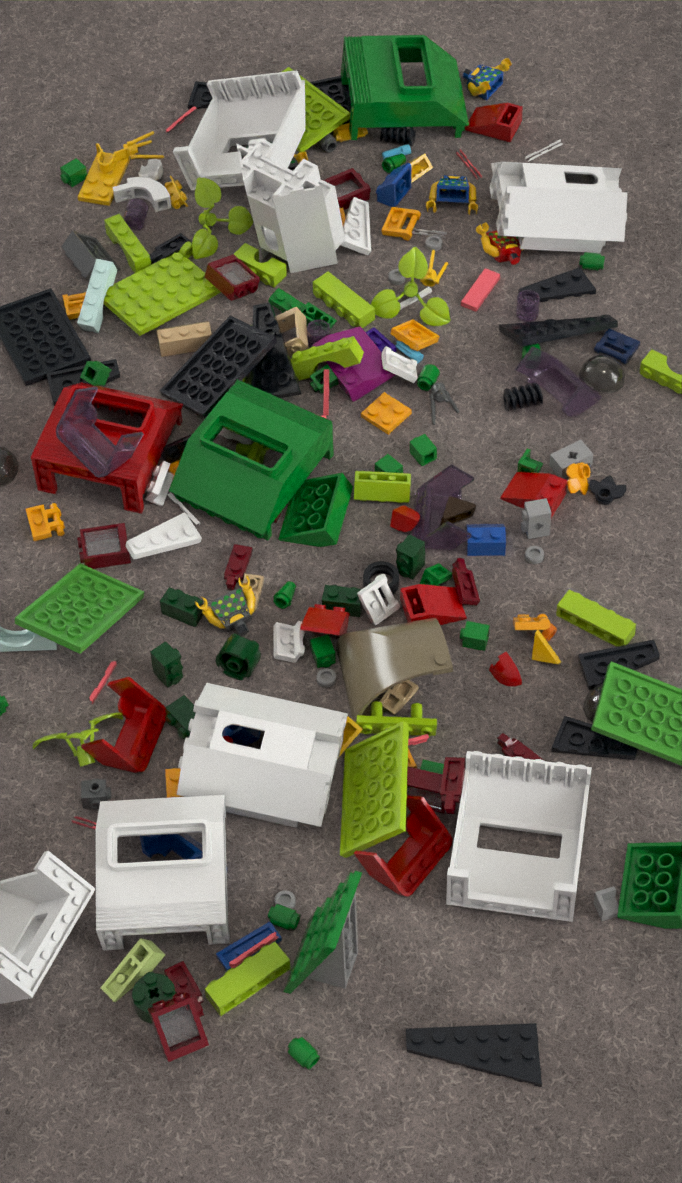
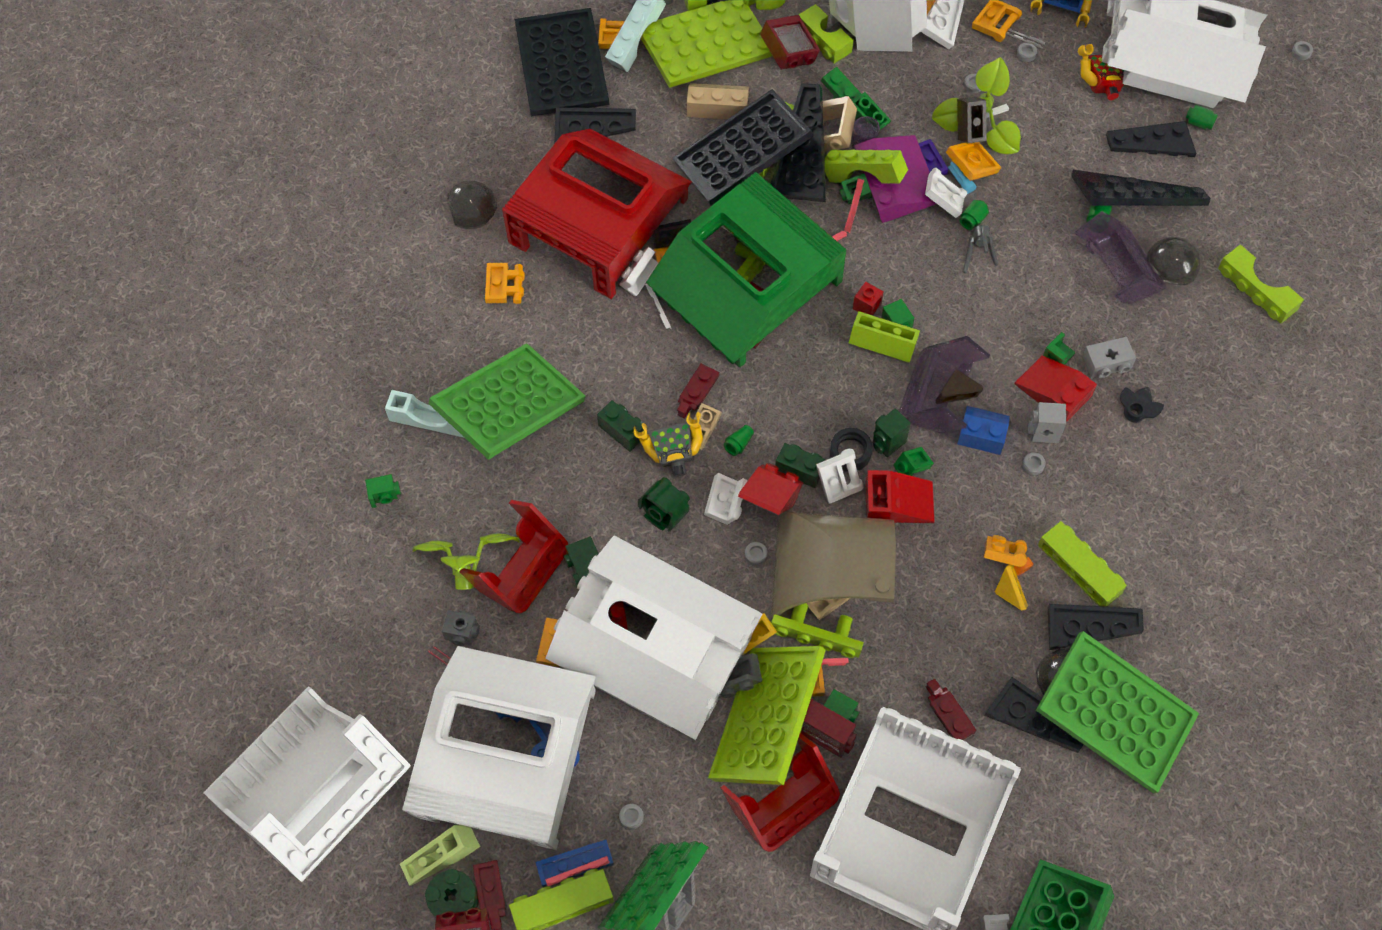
camera: 15 degrees right, 10 degrees up
(87, 442) = (566, 207): clear purple windscreen -> none
(93, 696) = (519, 482): coral piece -> none
(95, 373) = (607, 122): green brick -> none
(102, 546) = (558, 329): window -> none
(165, 537) = (628, 336): white wing -> none
(167, 664) = (583, 493): dark green brick -> none
(284, 917) = (623, 838): green brick -> none
(317, 511) = (803, 348): green slope -> none
(322, 651) = (760, 523): green brick -> none
(343, 300) = (905, 98): lime brick -> none
(346, 768) = (743, 677): none -> dark grey bracket
(360, 460) = (868, 299): none -> red brick
(386, 413) = (914, 246): light orange plate -> none
(404, 303) = (971, 119): none -> dark brown brick
(404, 519) = (898, 382): red brick -> none
(423, 450) = (943, 302): green brick -> none
(431, 277) = (1012, 94): yellow plant -> none
(452, 782) = (855, 736): dark red hinge -> none
(465, 583) = (944, 479): dark red hinge -> none
(475, 635) = (937, 548): green brick -> none
(480, 289) = (1063, 121): coral tile -> none
(506, 671) = (960, 601): red brick -> none
(522, 395) = (1074, 264): black piece -> none
(527, 306) = (1111, 155): clear purple wheel -> none
(578, 477) = (1110, 383): light orange plate -> none
(619, 343) = (1205, 225): dark blue plate -> none
(659, 193) = (1302, 50): none -> light grey tile

